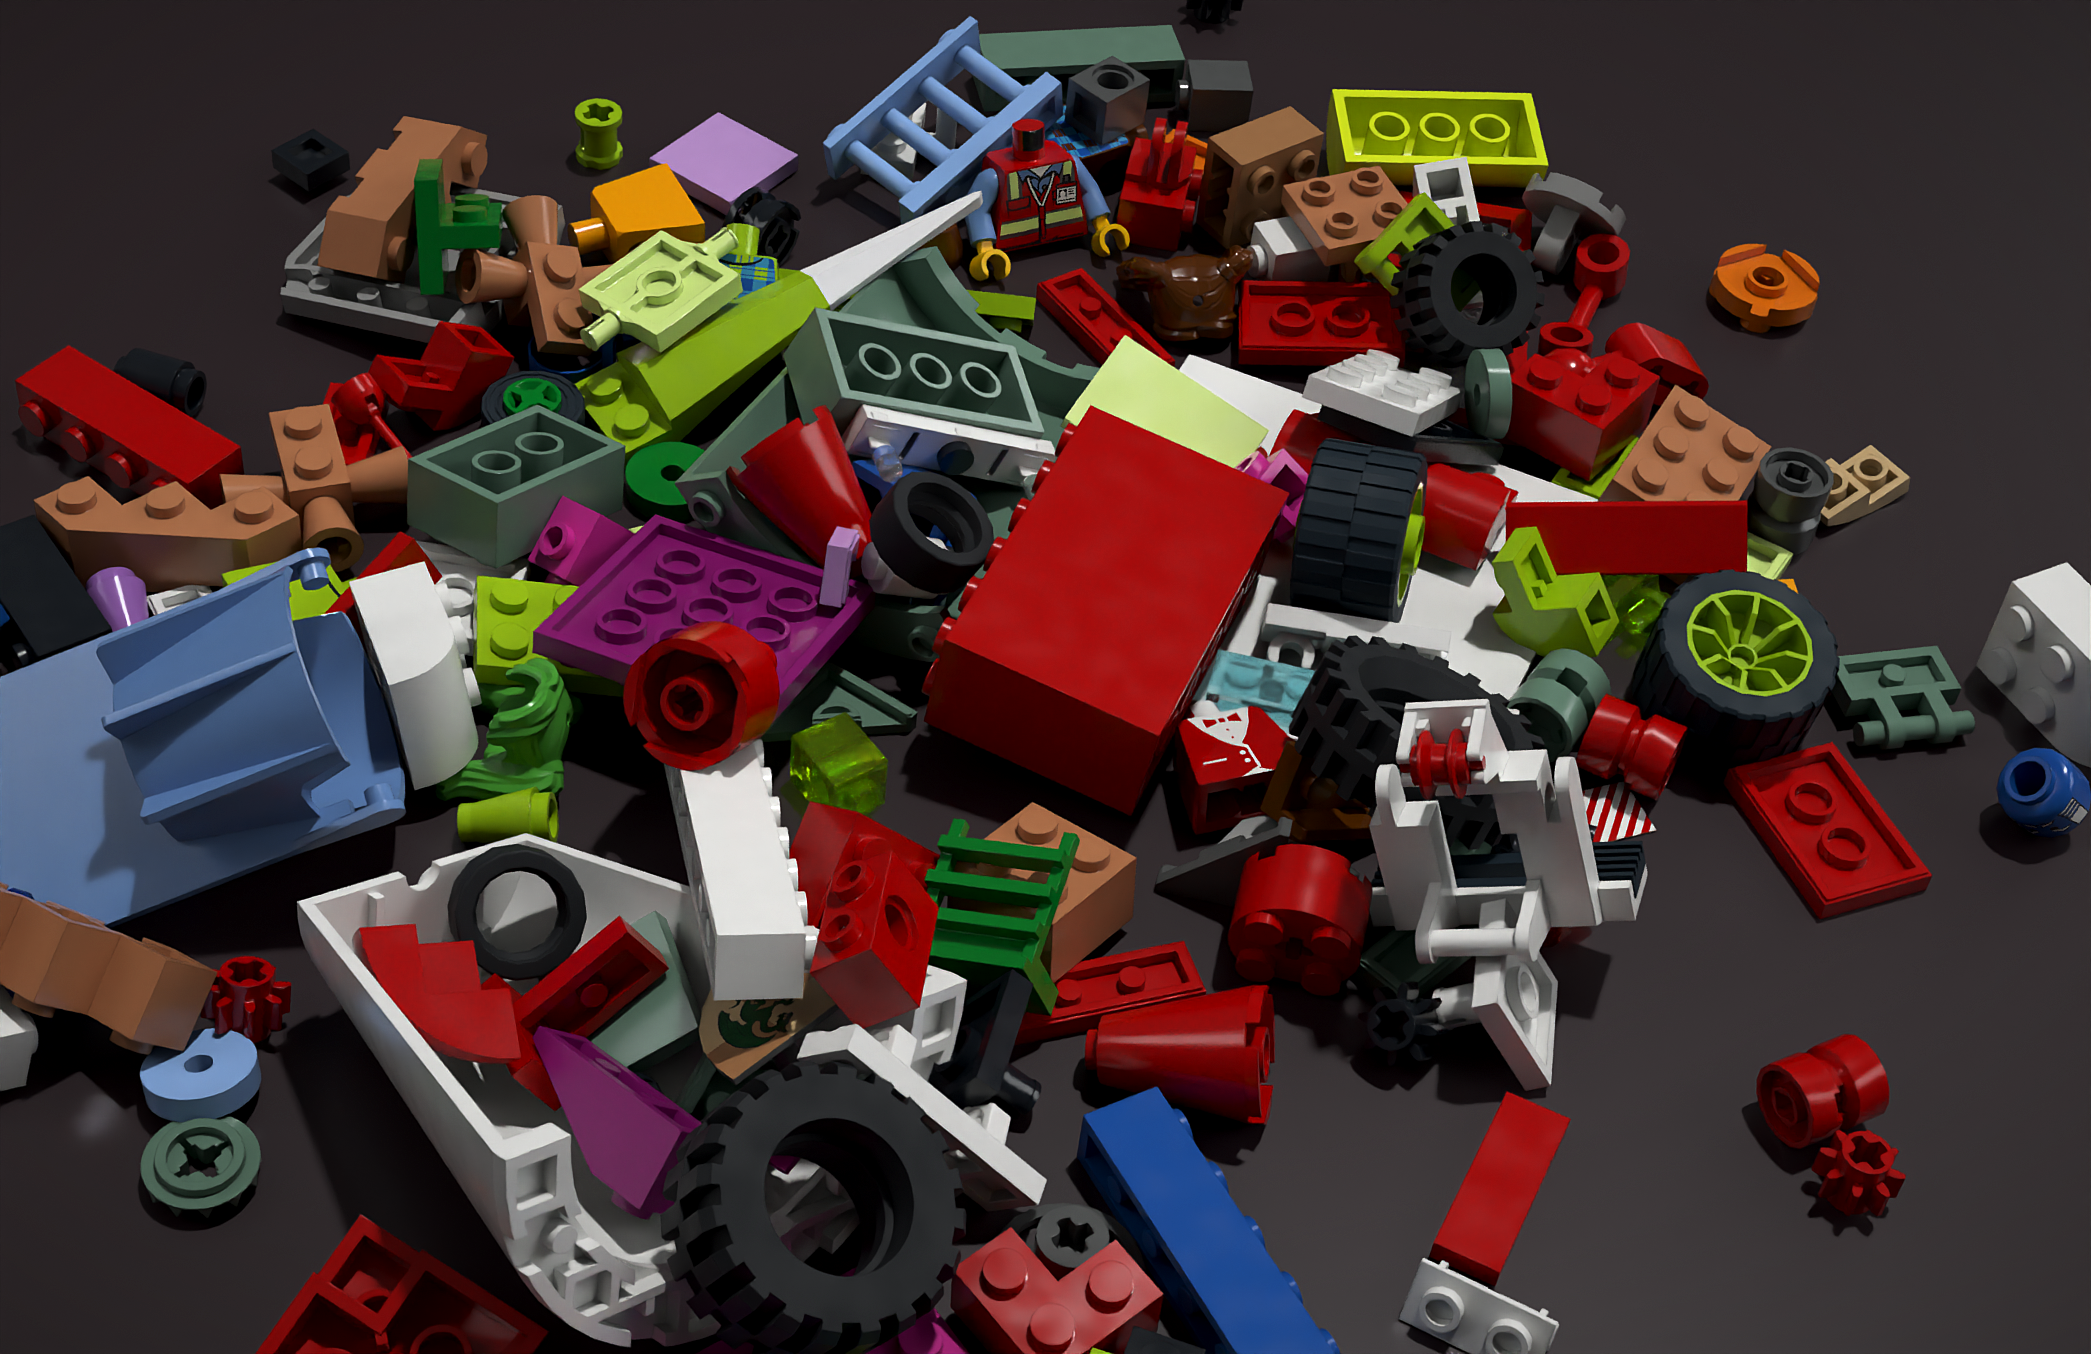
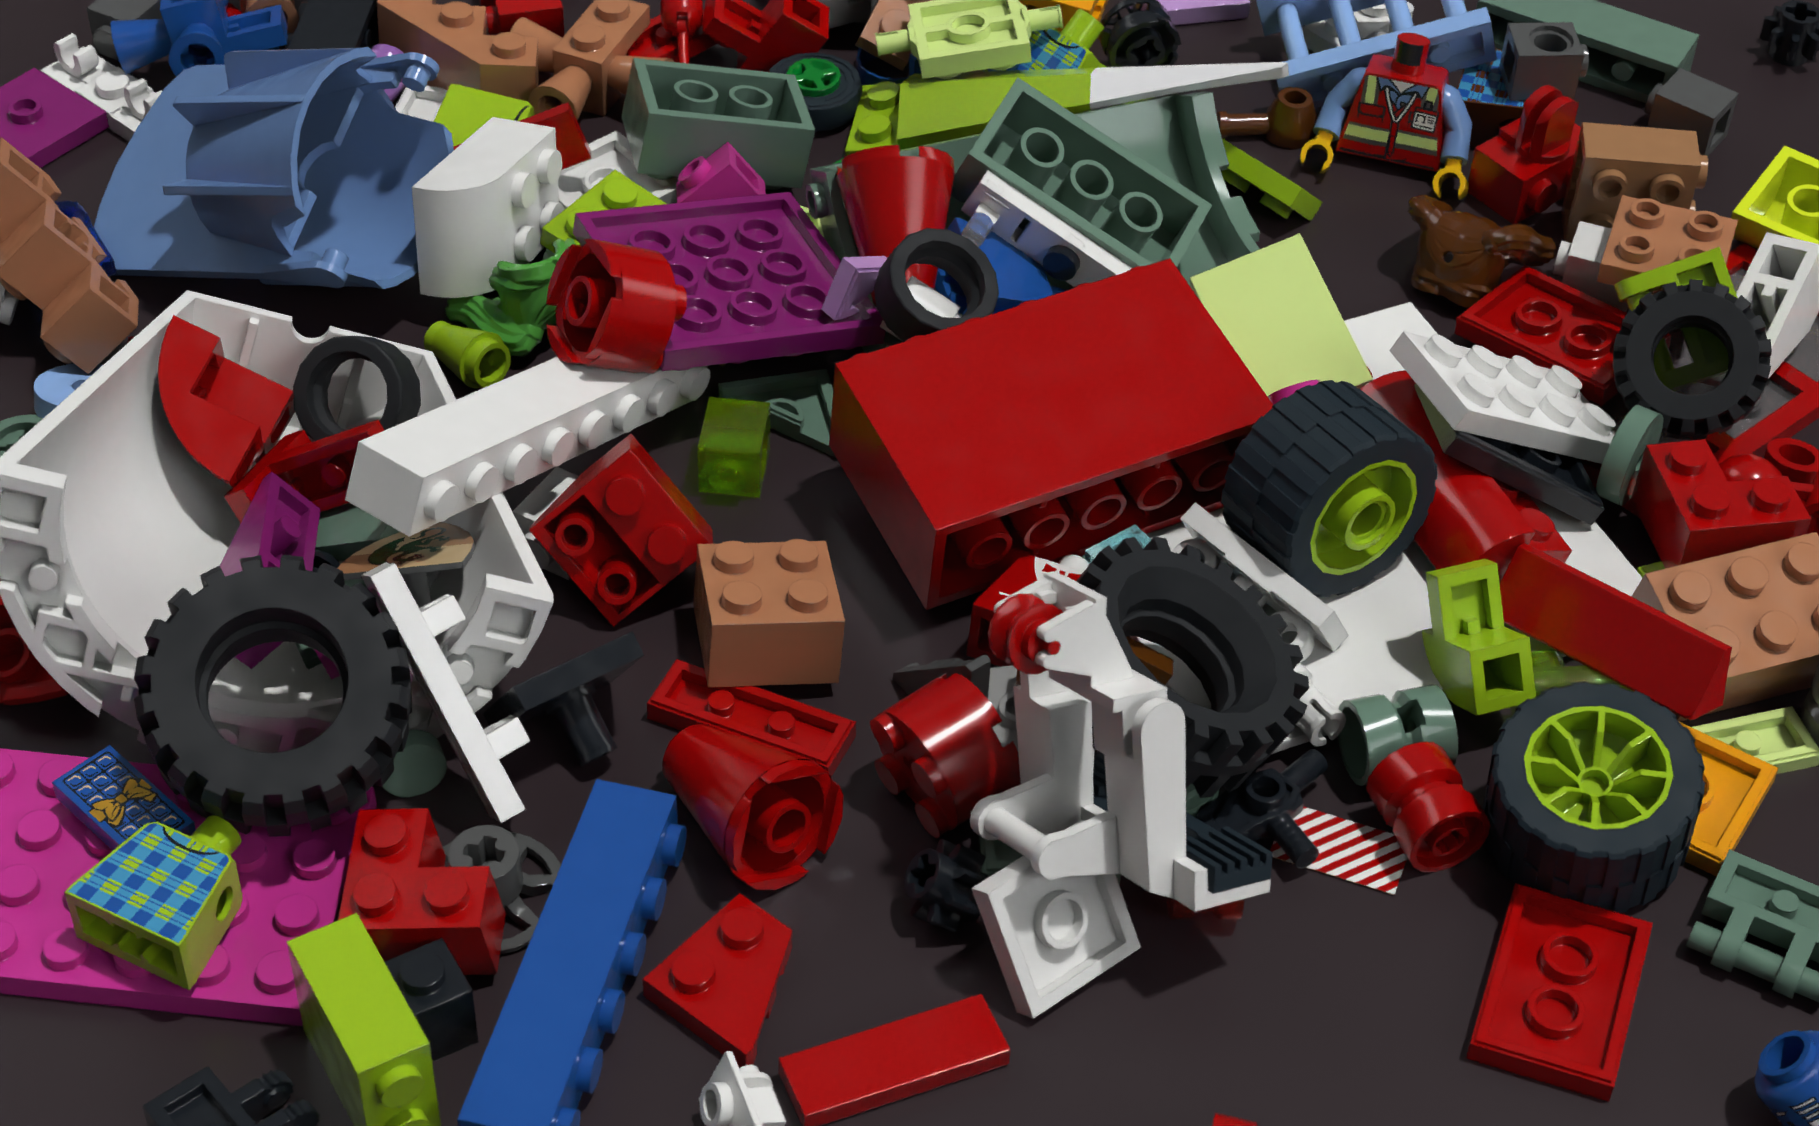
camera: 45 degrees right, 0 degrees up
(875, 940) = (530, 521): red brick -> none
(989, 945) = (657, 617): green plate -> none
(1093, 315) = (1365, 250): red tile -> none
(1321, 1211) = (725, 977): none -> red wing

